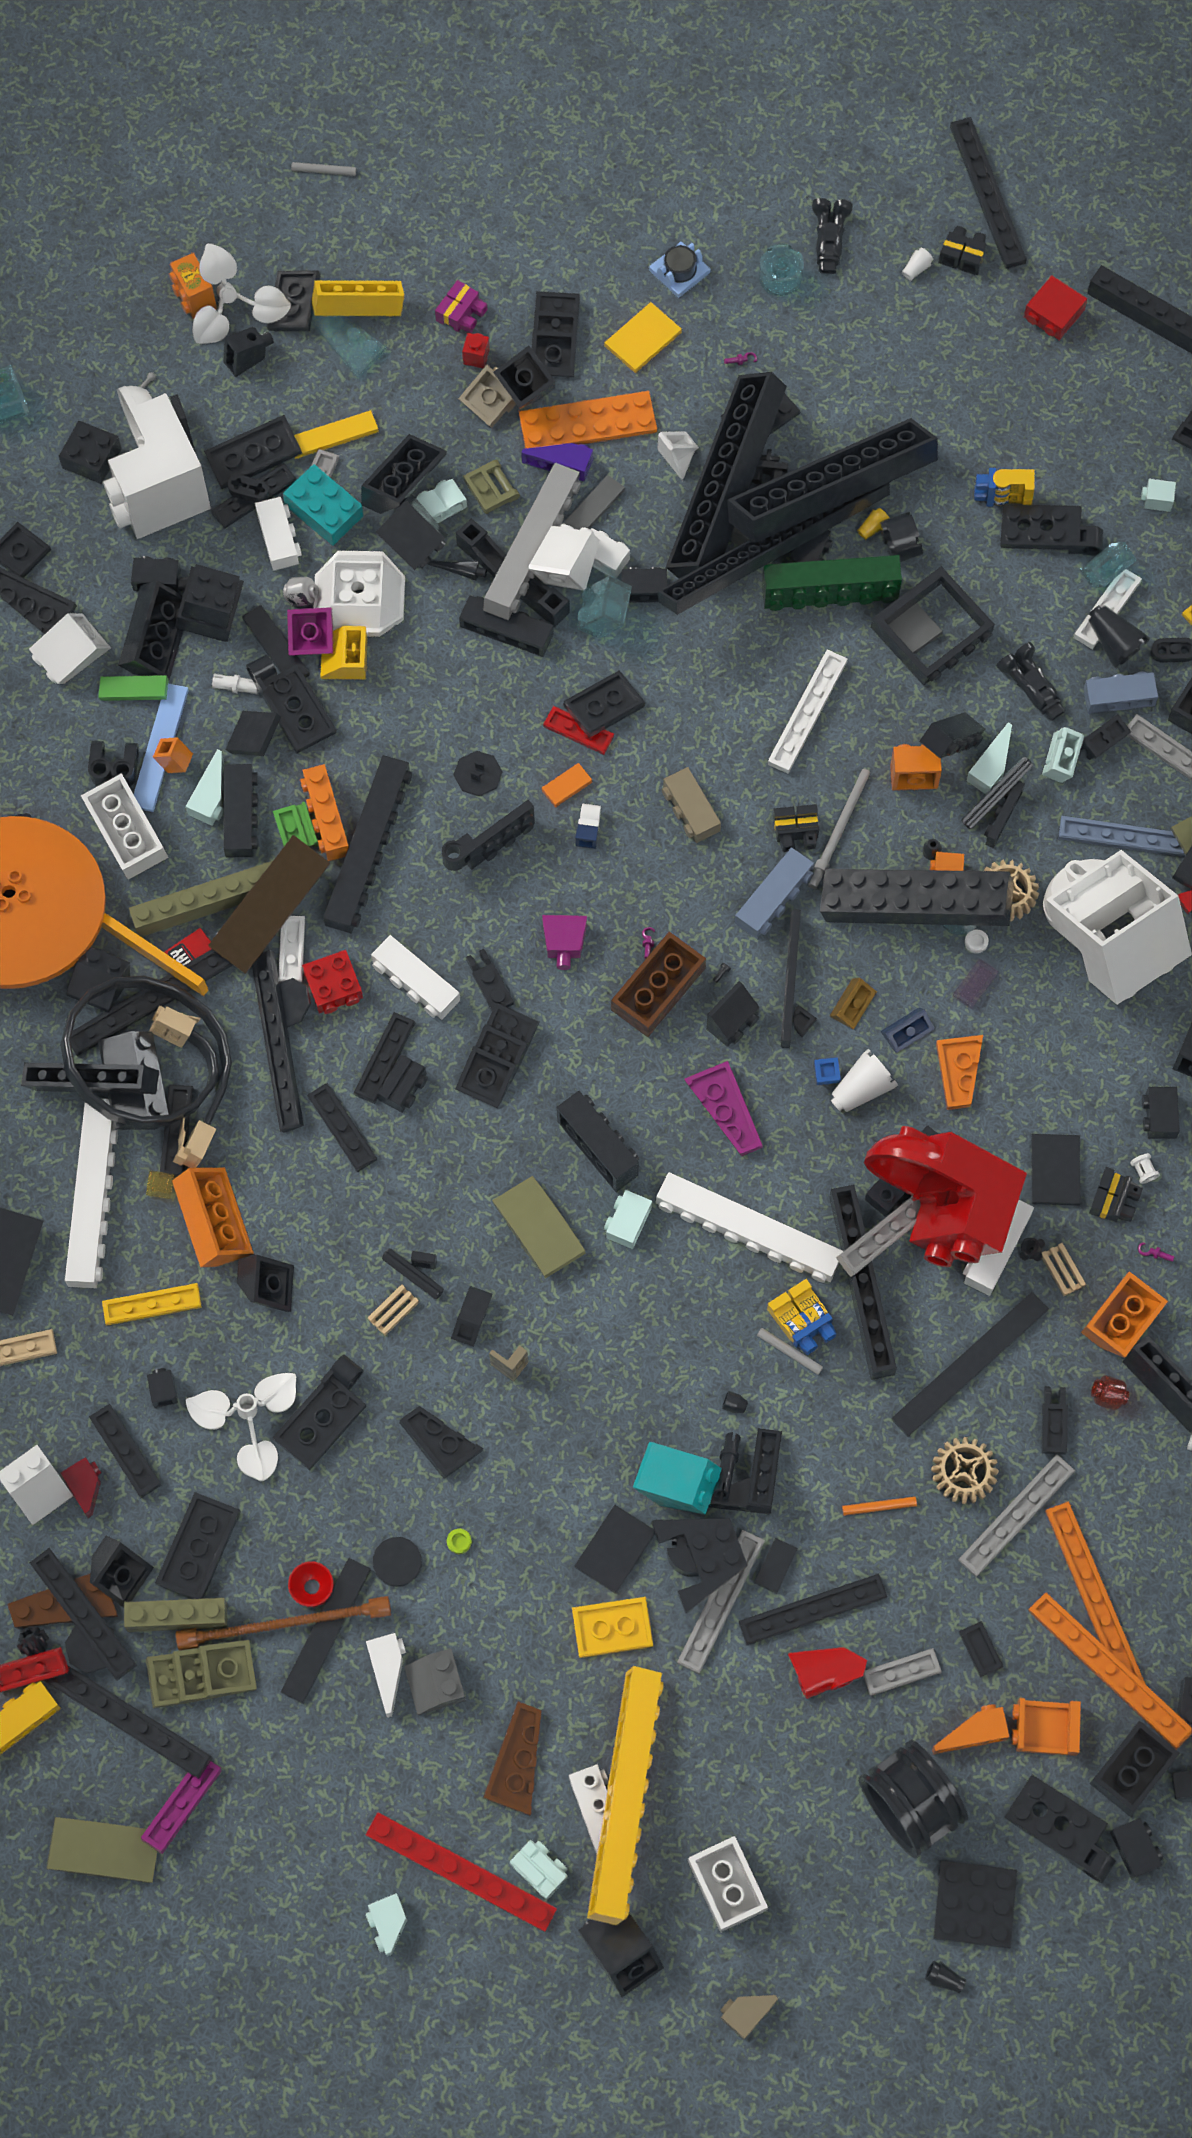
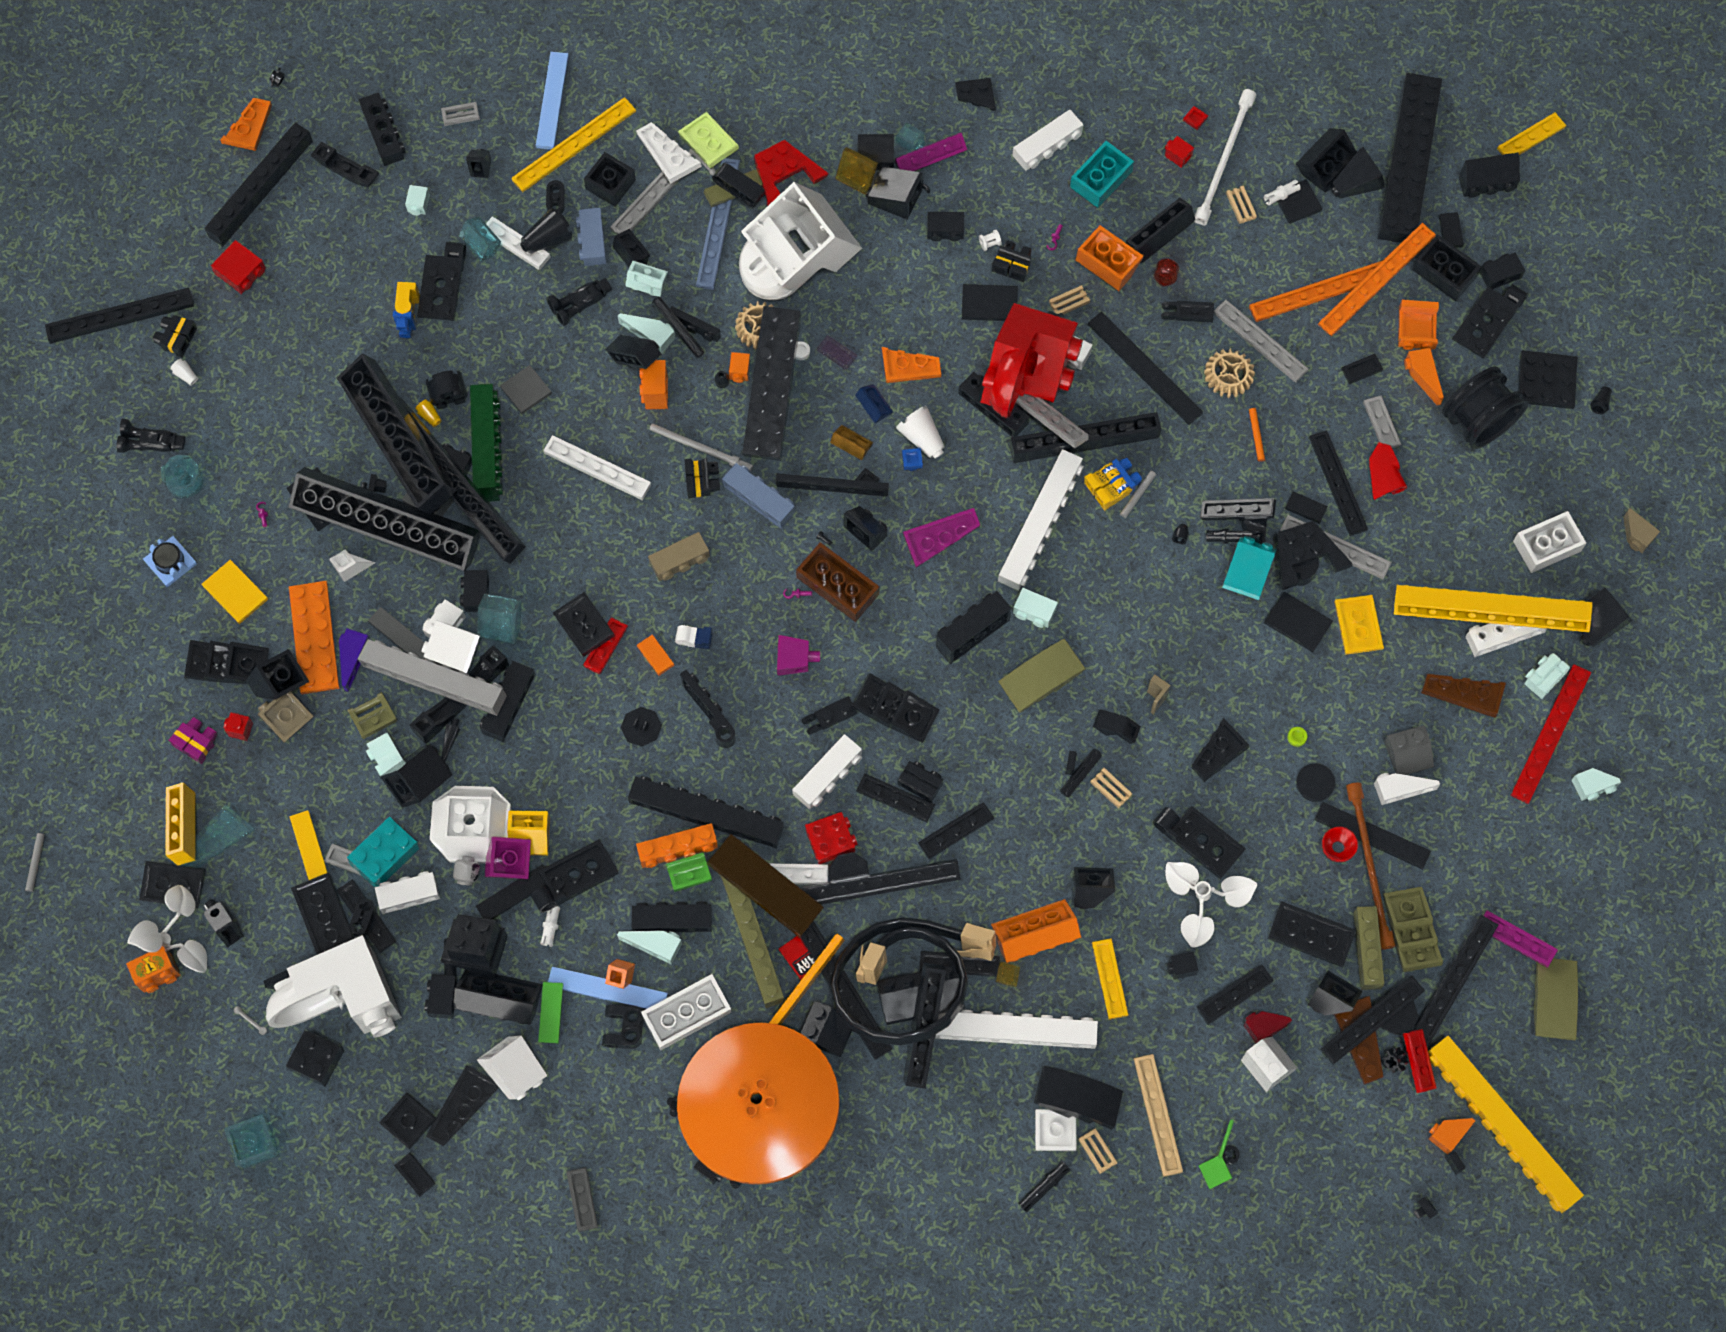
camera: 90 degrees left, 0 degrees up
(253, 733) = (600, 907): black tile -> none
(400, 474) = (364, 780): black slope -> none
(910, 598) = (526, 408): black window -> none

